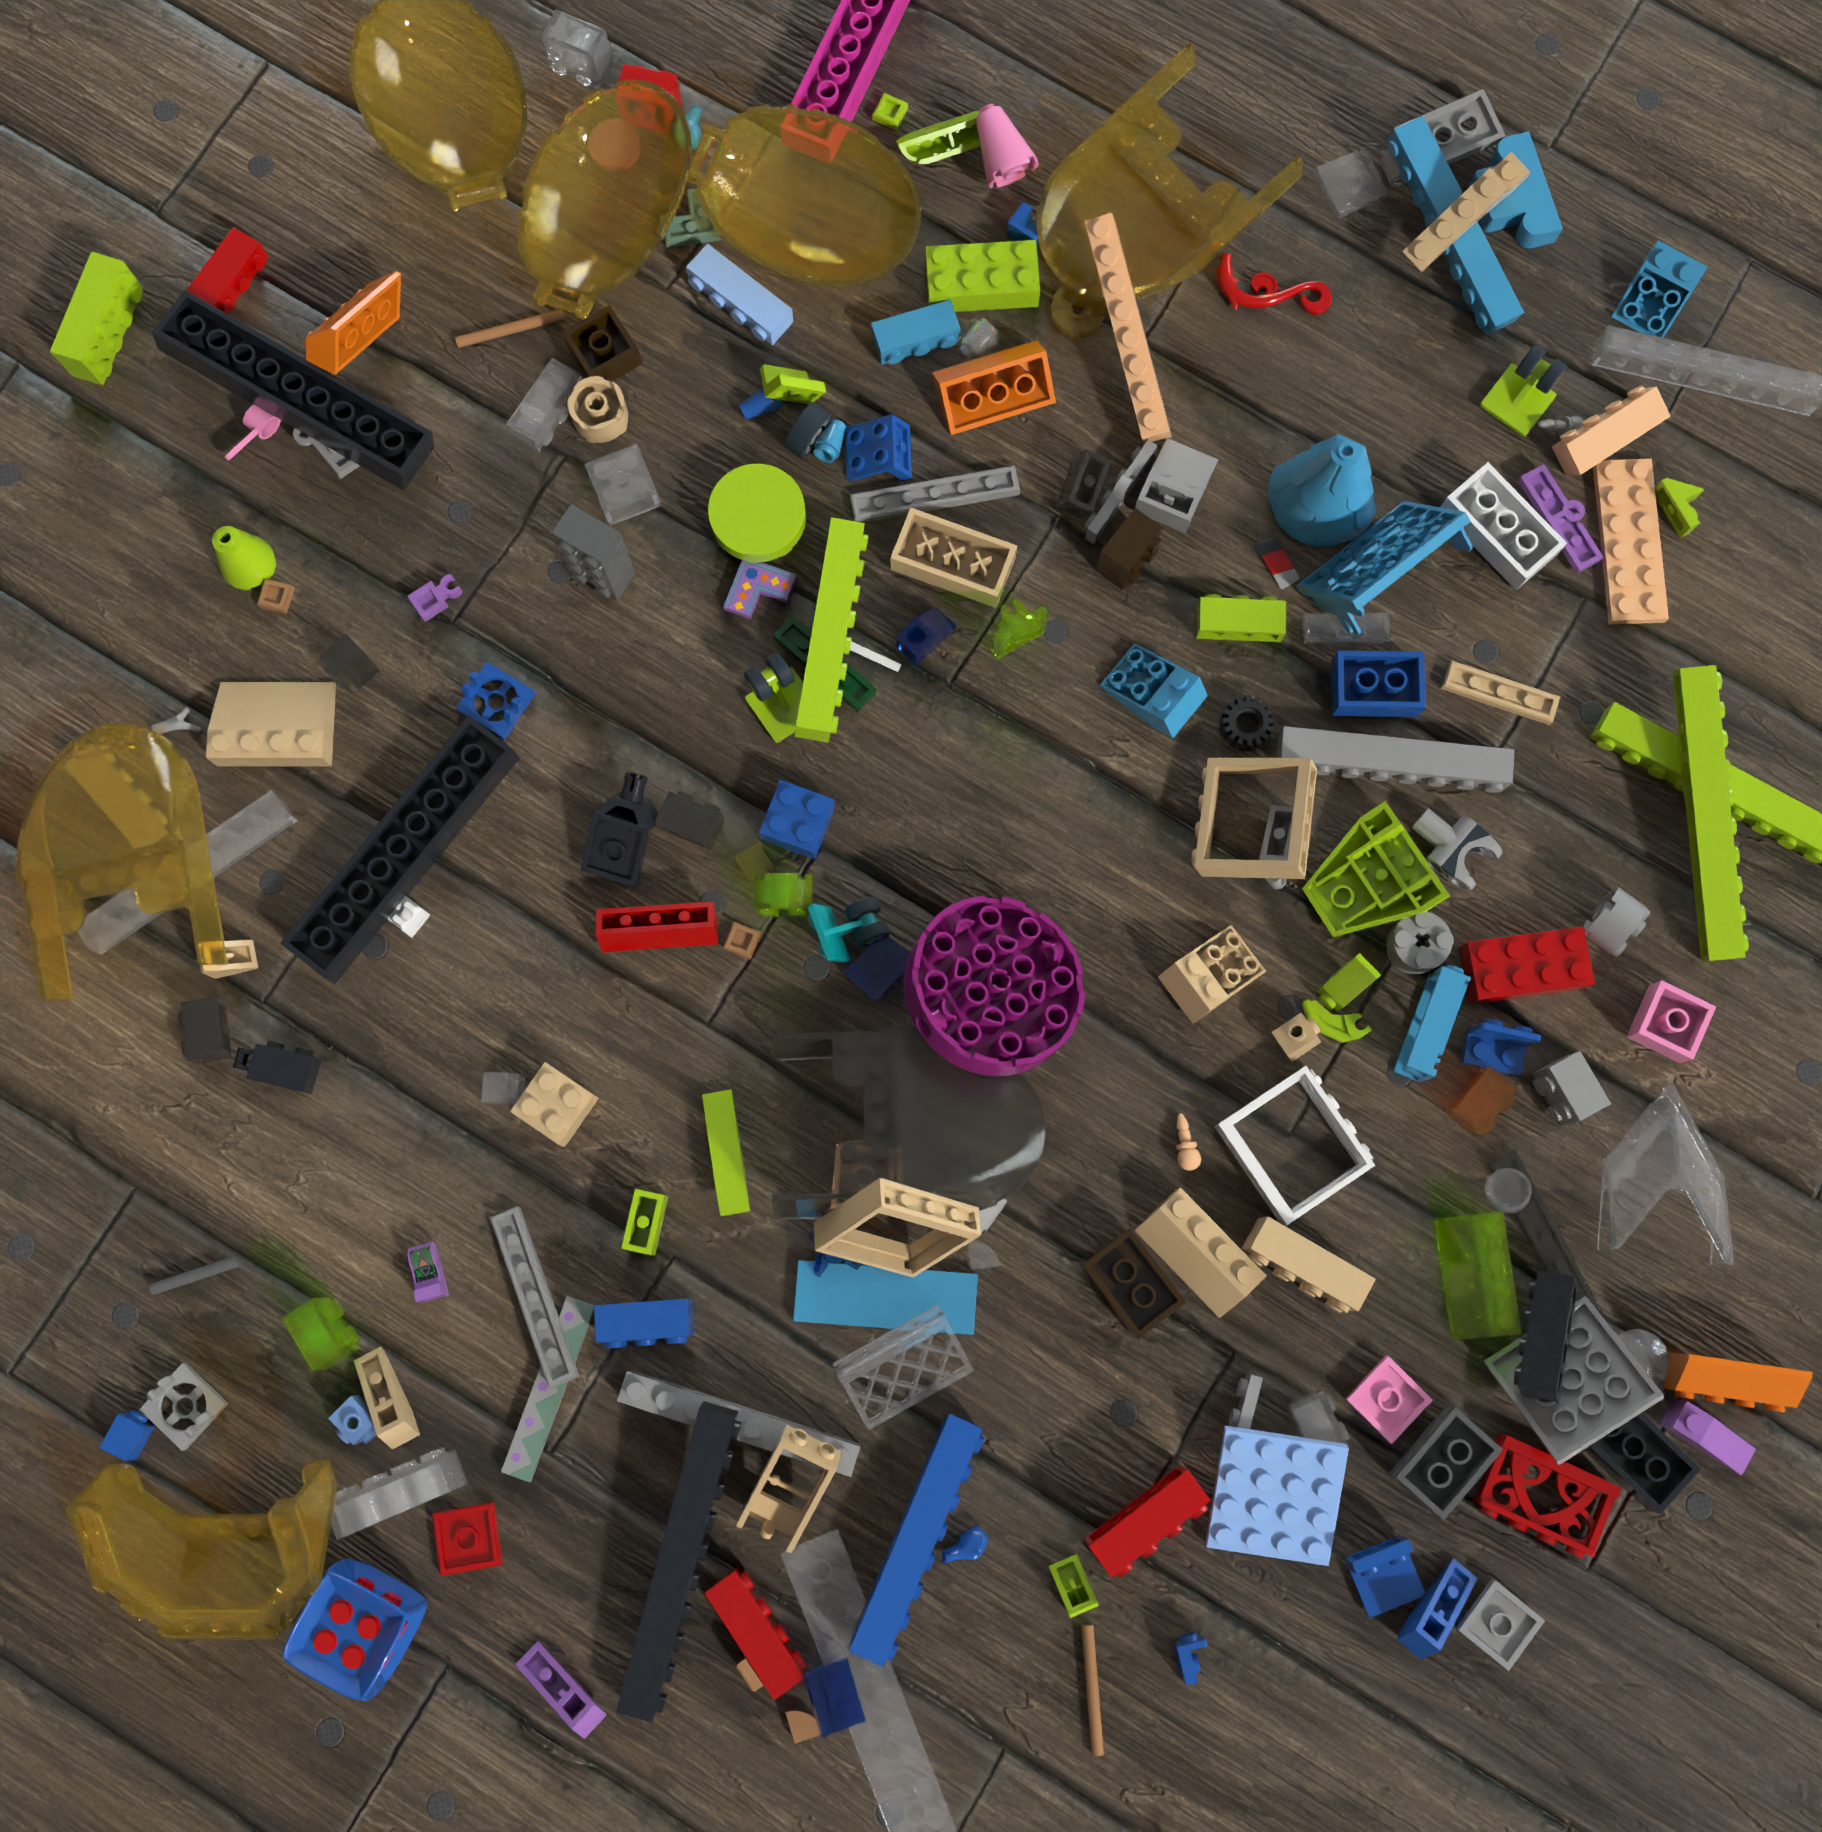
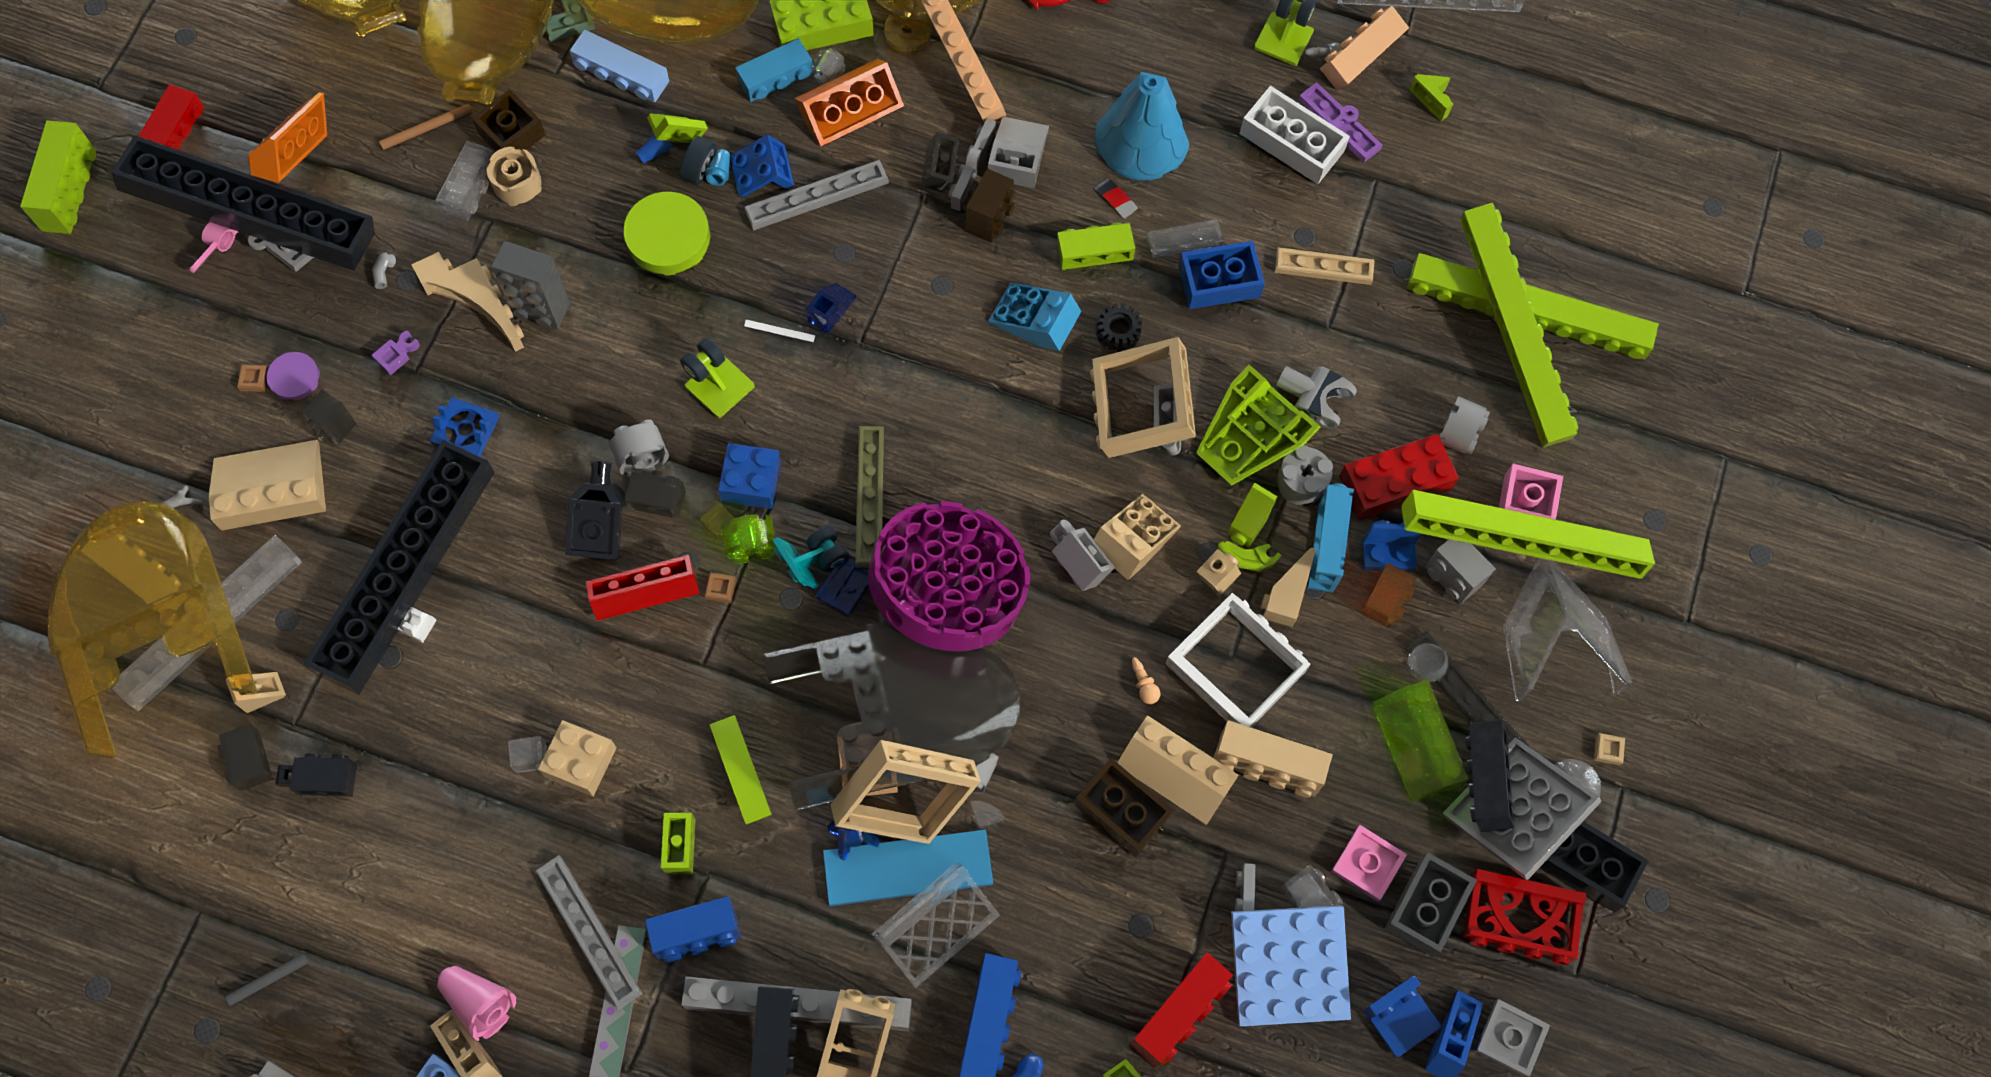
camera: 15 degrees left, 10 degrees down
(243, 557) = (218, 349): lime cone -> none
(319, 602) = (293, 376): none -> medium lavender tile
(322, 1333) = (395, 1002): clear neon green brick -> none
(403, 1347) = (476, 1001): none -> bright pink cone
(427, 1272) = (486, 931): leg -> none
(431, 494) = (378, 270): none -> light grey arm
(530, 535) = (471, 287): none -> tan arch
(623, 484) = (546, 229): clear brick -> none
(680, 765) = (638, 448): none -> light grey brick
(754, 580) = (674, 290): medium lavender tile -> none
(796, 641) = (748, 346): dark green hinge -> none
(829, 630) = (748, 317): lime brick -> none
(925, 866) = (869, 492): none -> olive tile
(953, 557) = (842, 239): tan brick -> none
(1018, 628) = (907, 281): clear neon green piece -> none
(1145, 986) = (1080, 555): none -> light grey brick
(1367, 1079) = (1287, 594): none -> tan slope
(1400, 758) = (1256, 331): light grey brick -> none
(1422, 532) = (1198, 171): dark azure piece -> none
(1630, 542) = (1401, 131): light nougat plate -> none
(1657, 1069) = (1527, 534): none -> lime brick
(1689, 1327) = (1609, 749): none -> tan tile
(1707, 1435) = (1649, 836): medium lavender slope -> none
(1736, 1380) = (1659, 782): orange slope -> none

